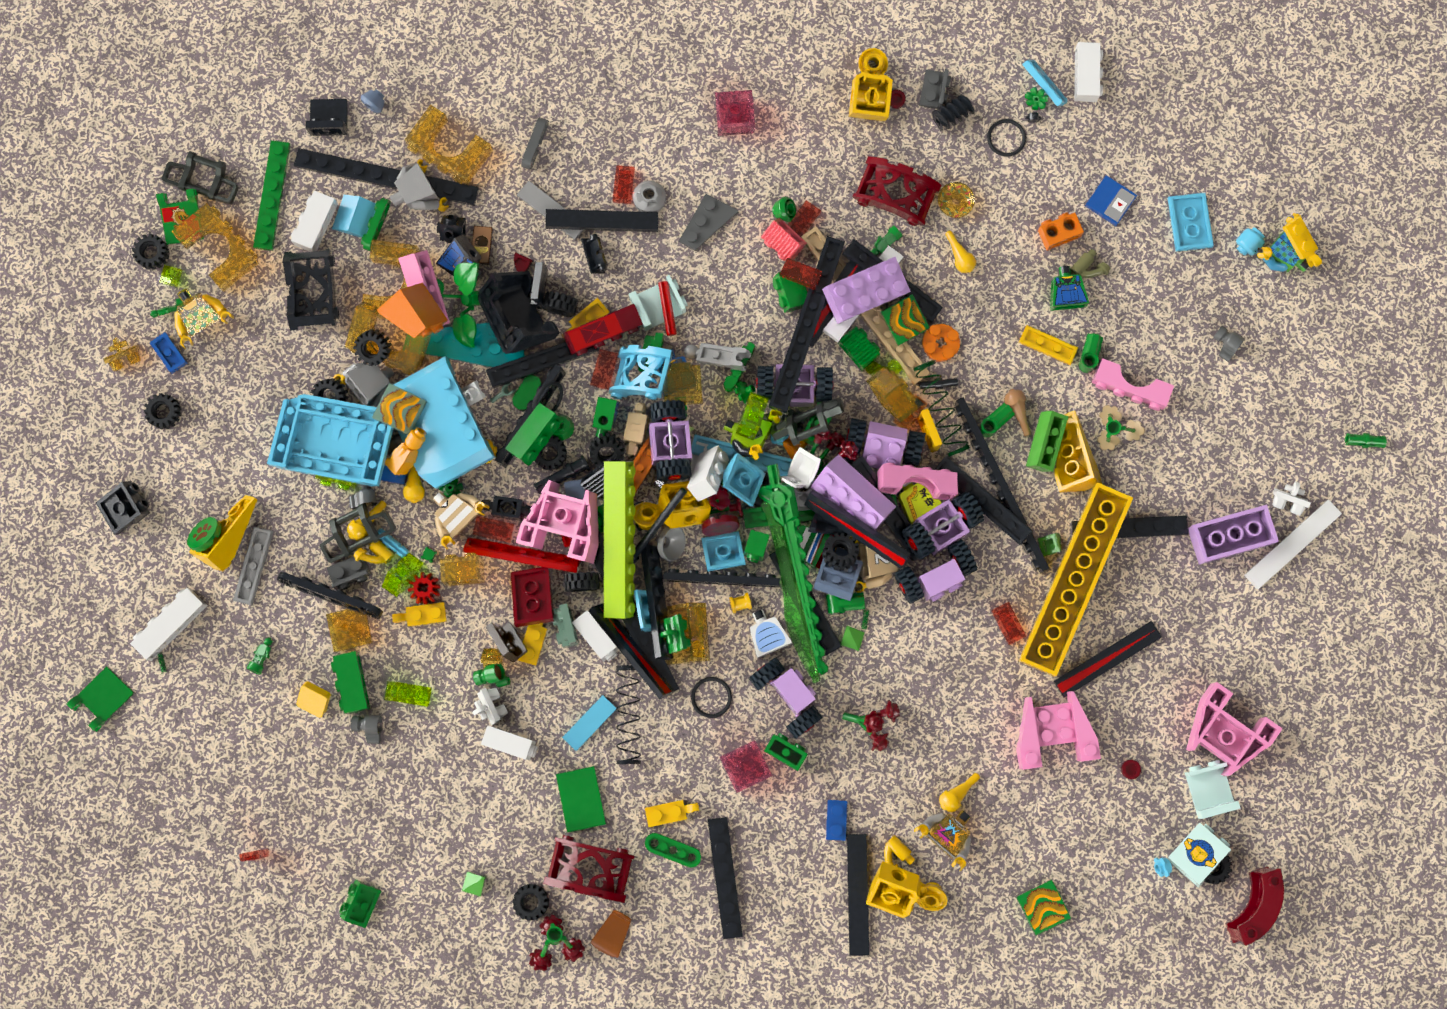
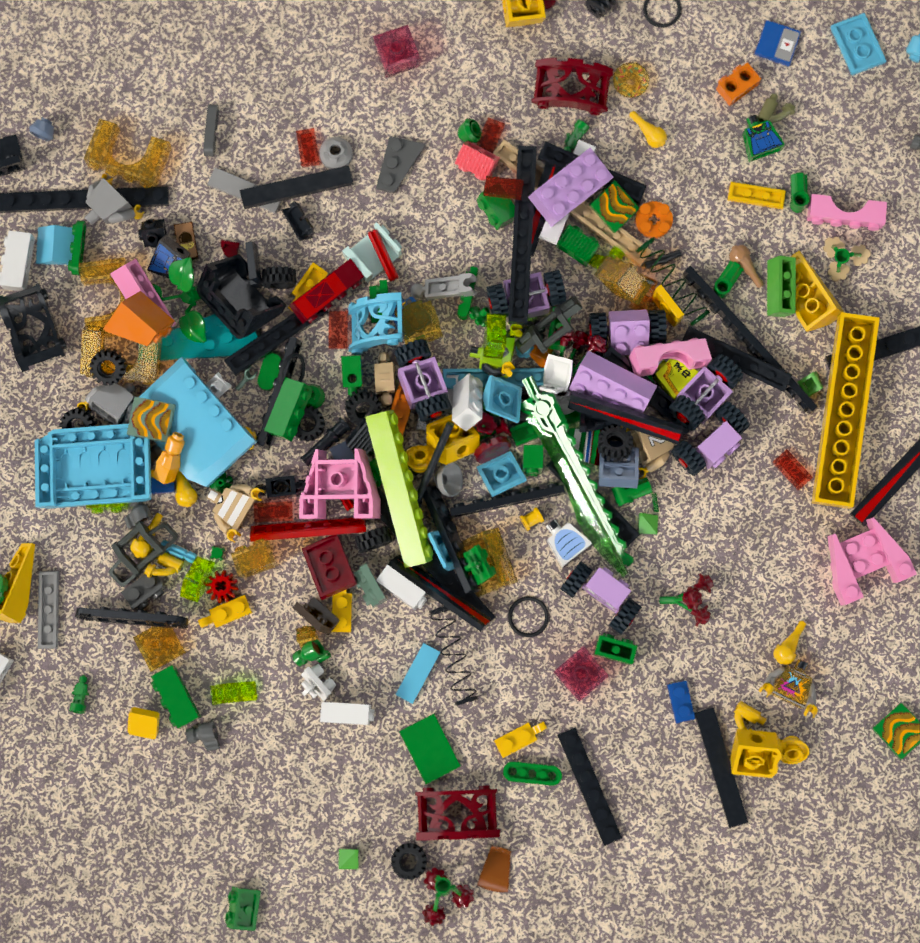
camera: 15 degrees left, 0 degrees up
(253, 855) = (127, 890): clear red tile -> none

